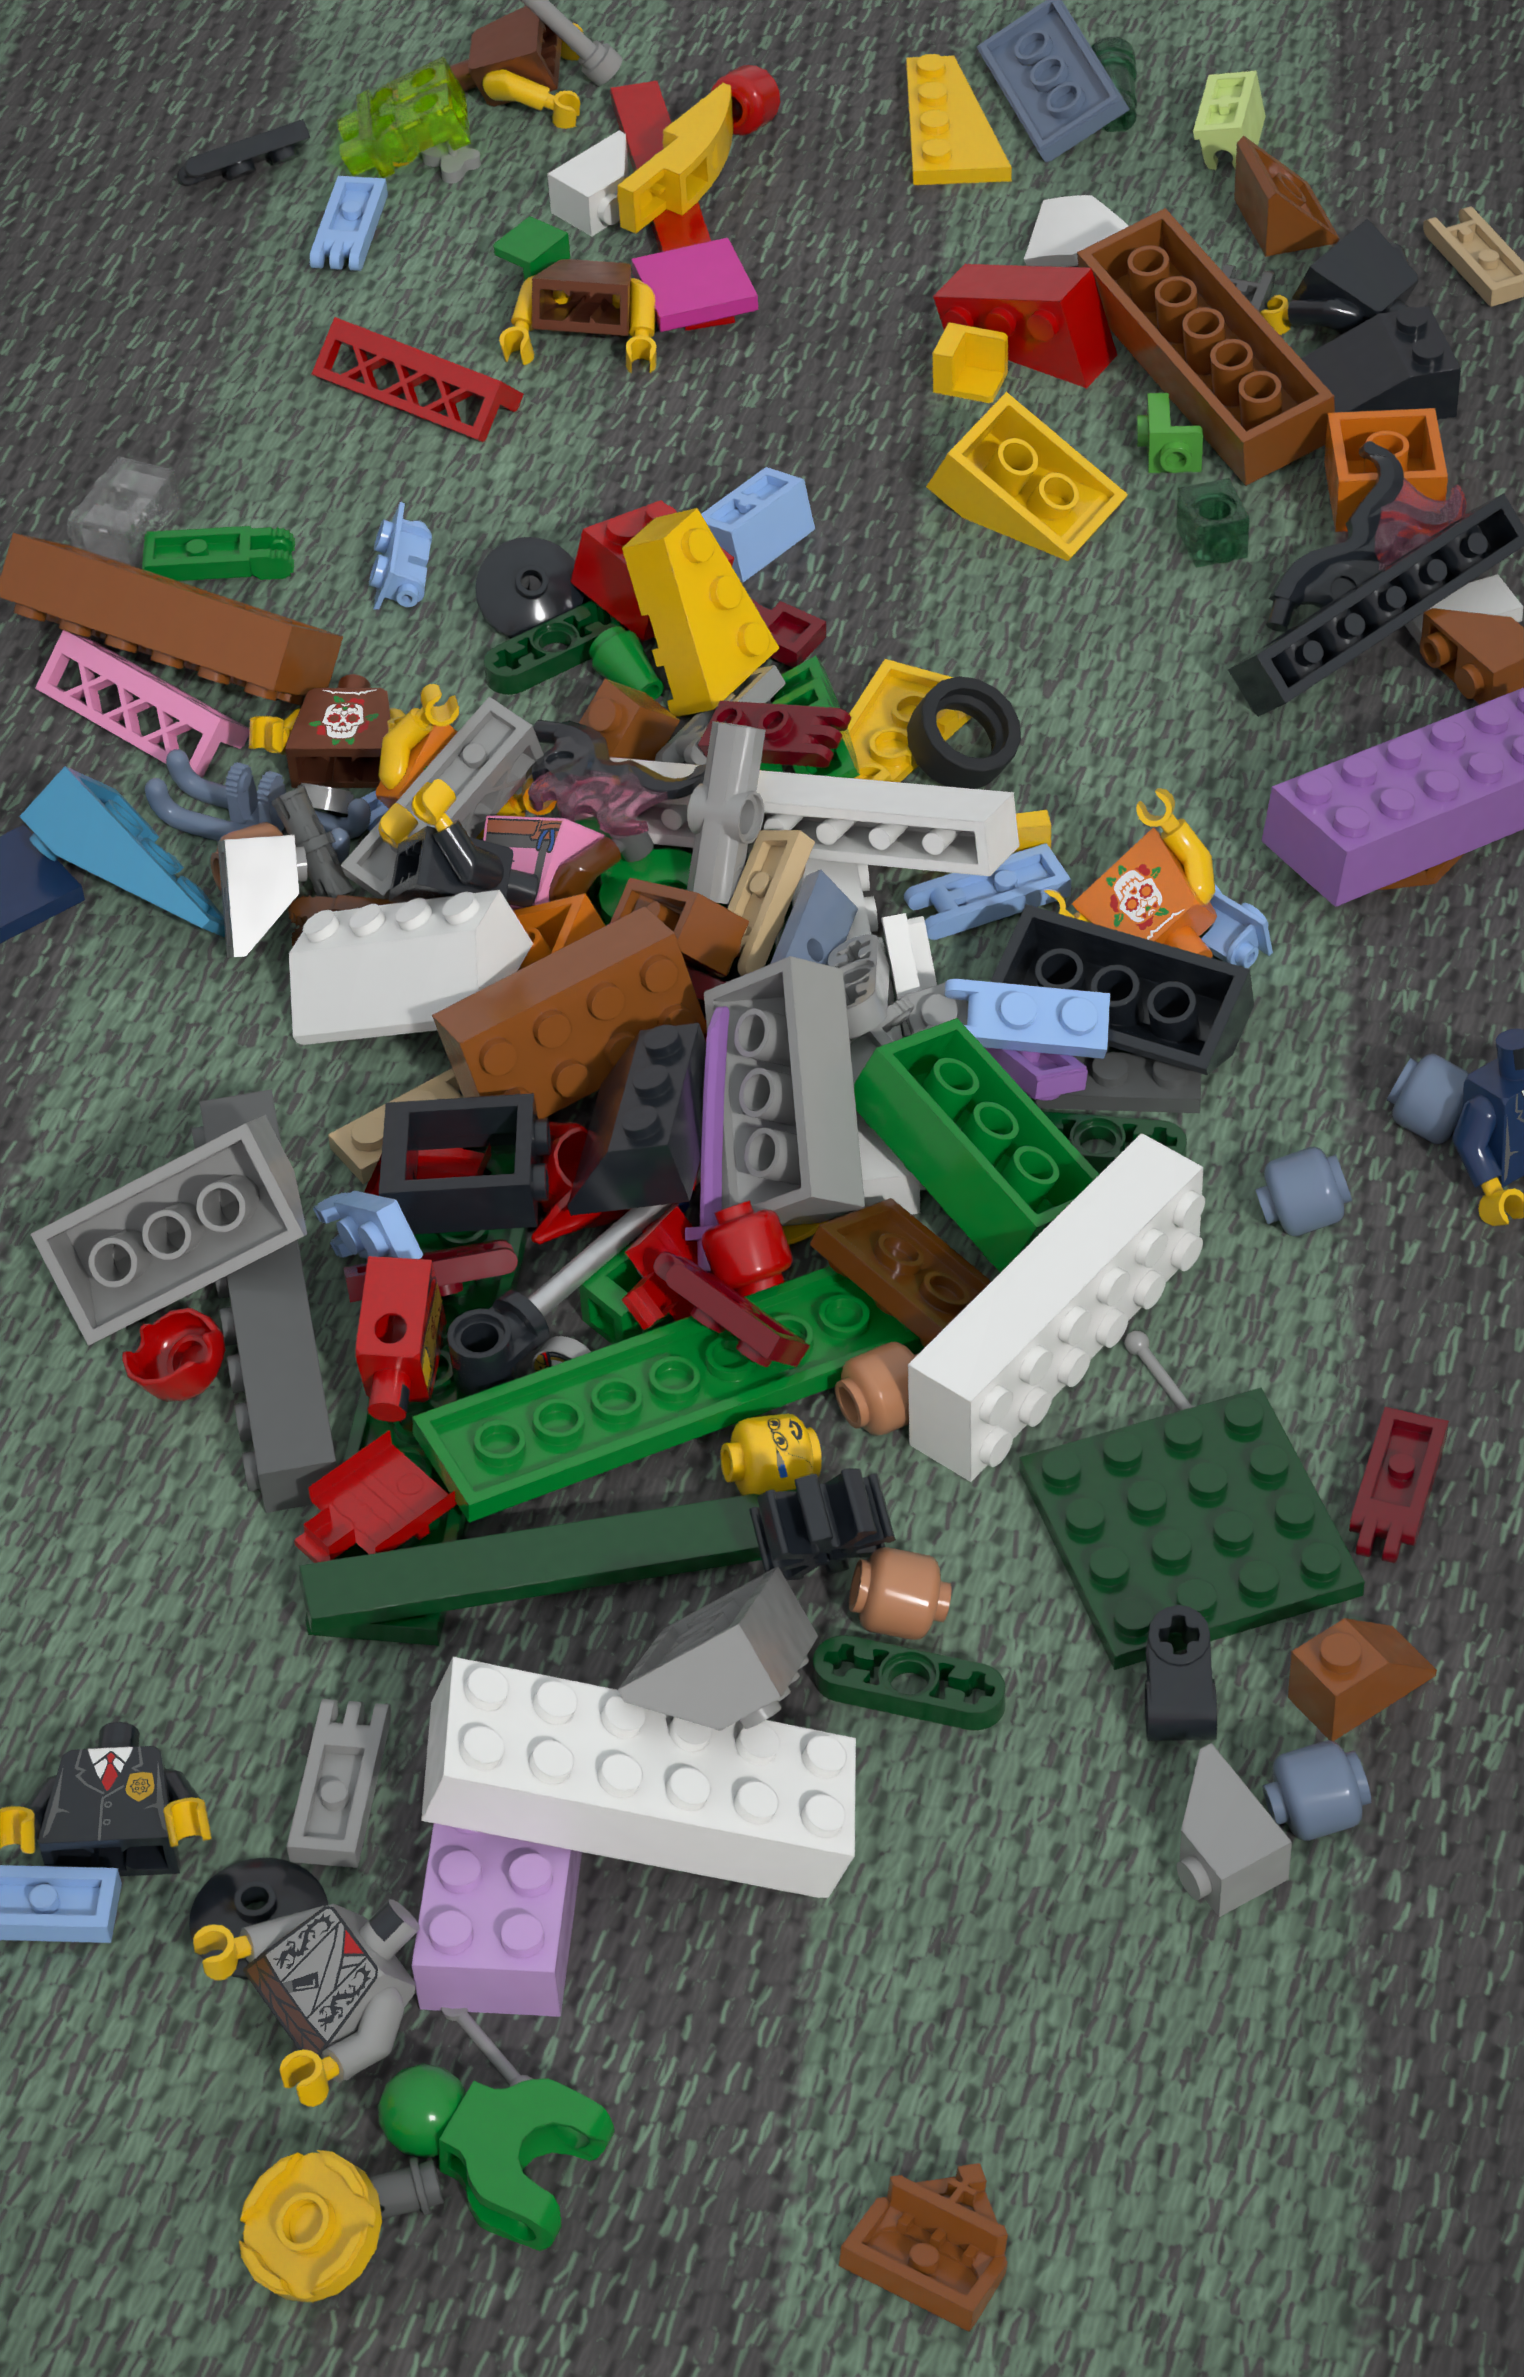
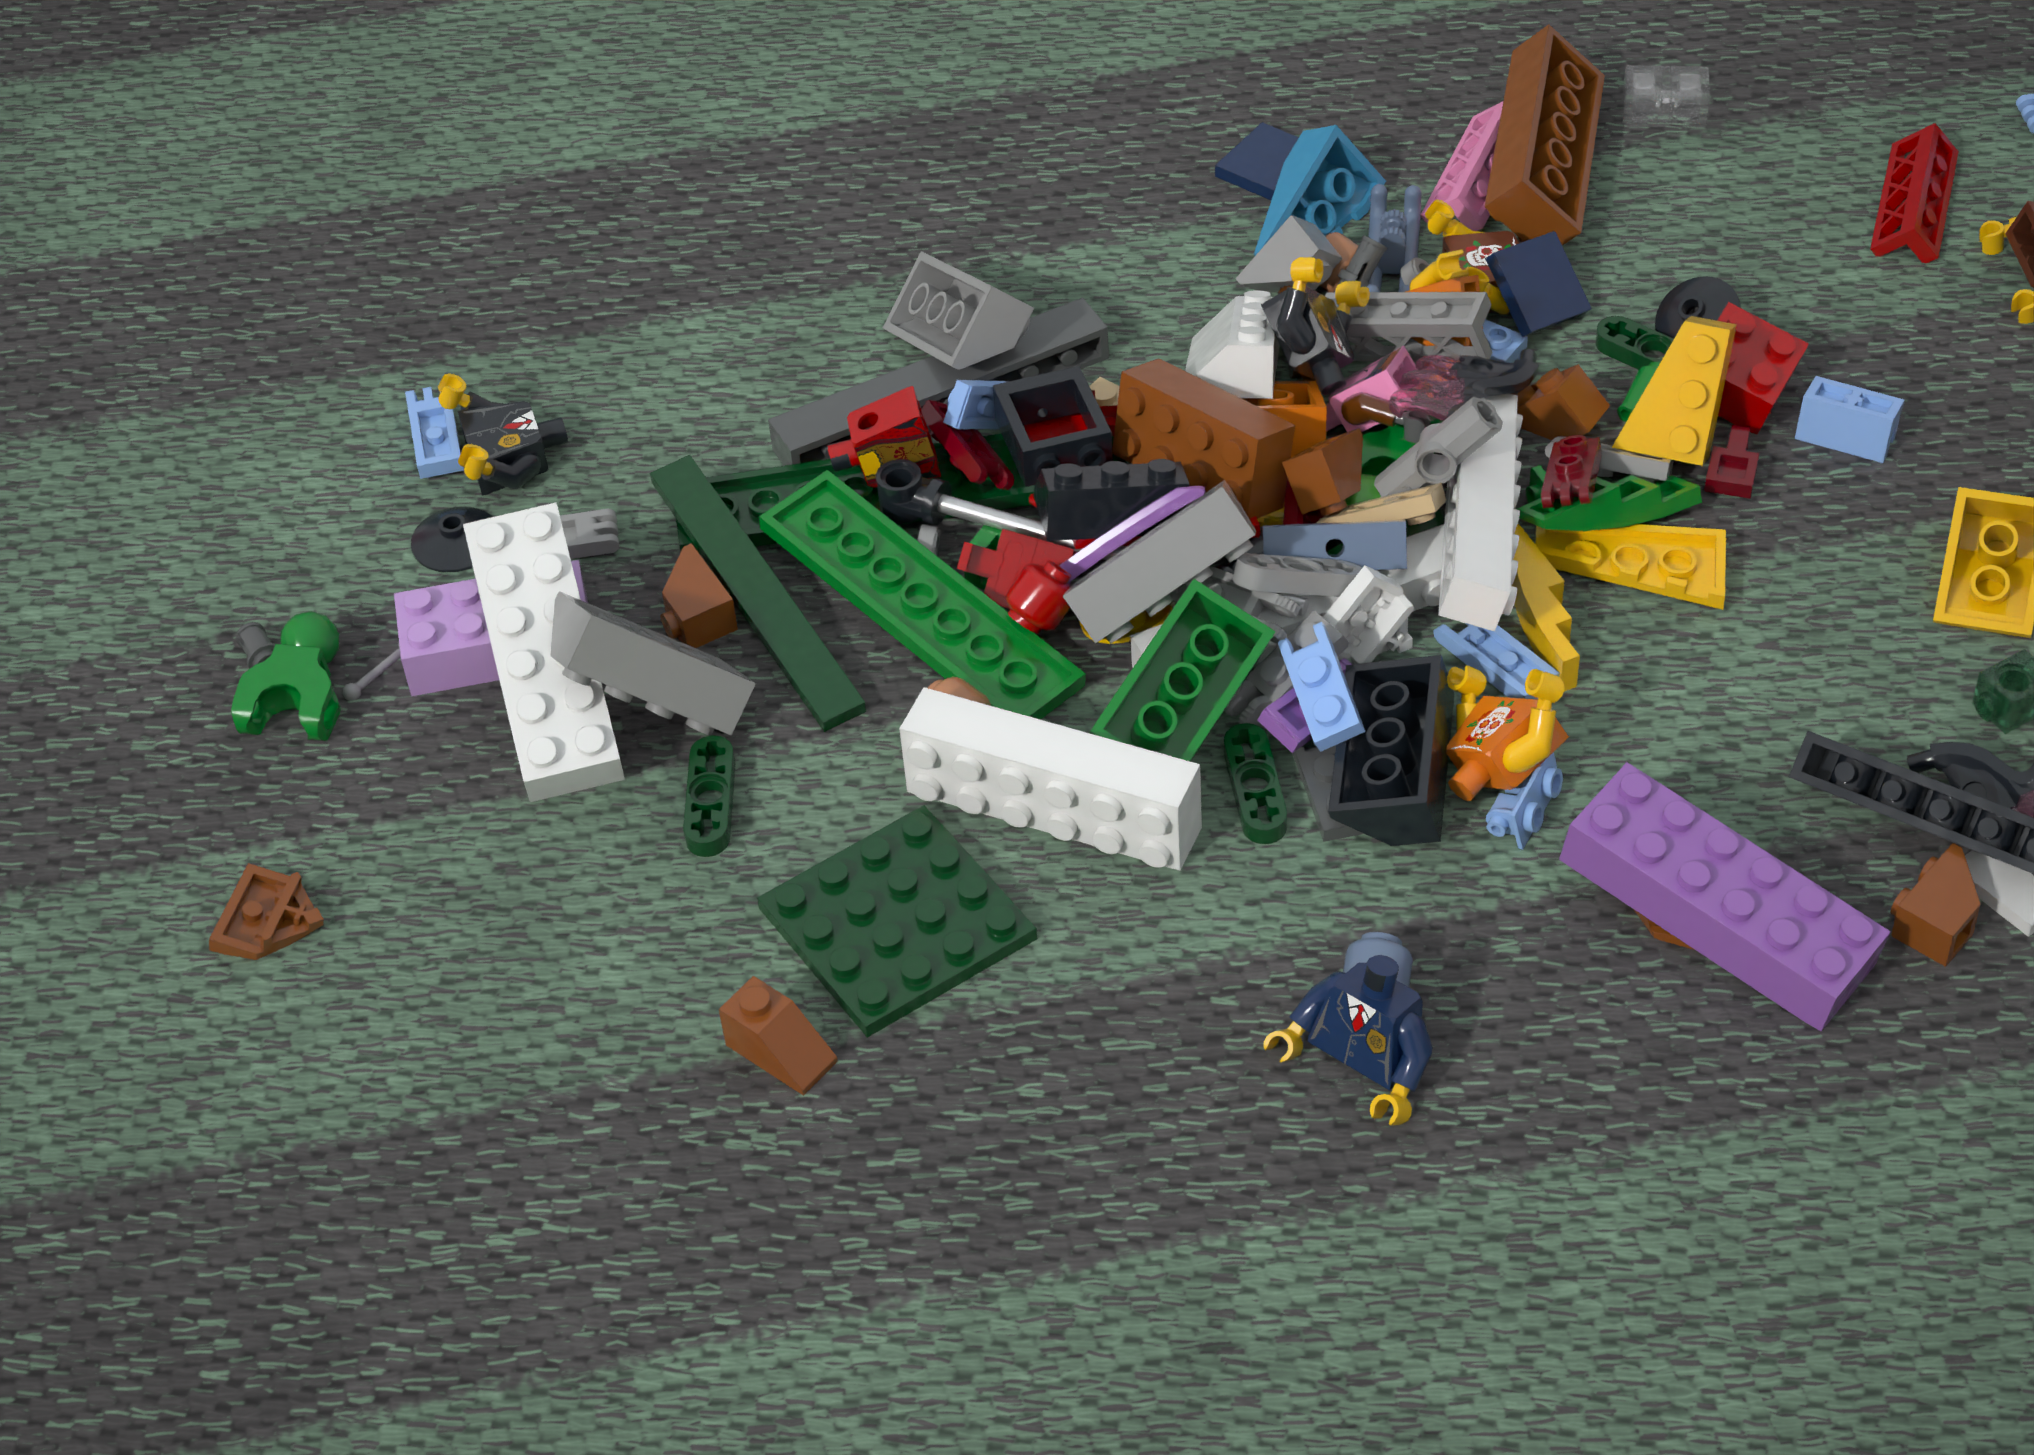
camera: 75 degrees right, 0 degrees up
(176, 1355) = (863, 361): red hair -> none
(220, 553) = (1654, 154): green hinge -> none
(310, 2226) = (225, 617): yellow tile -> none
(327, 1983) = (387, 565): torso -> none
(371, 1501) = (765, 481): red piece -> none
(399, 683) = (1538, 283): none -> dark blue tile
(402, 566) = (1682, 247): light blue hinge -> none
(547, 1629) = (696, 602): none -> dark orange slope
(724, 1308) = (972, 599): dark red hinge -> none
(770, 1454) = (877, 670): yellow head -> none
(821, 1523) = (794, 694): black gear -> none
(899, 1593) = (775, 765): nougat head -> none
(900, 1266) = (1064, 679): reddish brown plate -> none
(988, 708) = (1652, 556): black tyre -> none
(1137, 1344) = (1065, 853): light grey hinge -> none
(1179, 1687) = (733, 932): black piece -> none
(1228, 1839) = (610, 988): light grey slope -> none
(1304, 1191) = (1242, 910): sand blue head -> none
(1317, 1790) = (657, 1031): sand blue head -> none
(1397, 1481) = (966, 1028): dark red hinge -> none

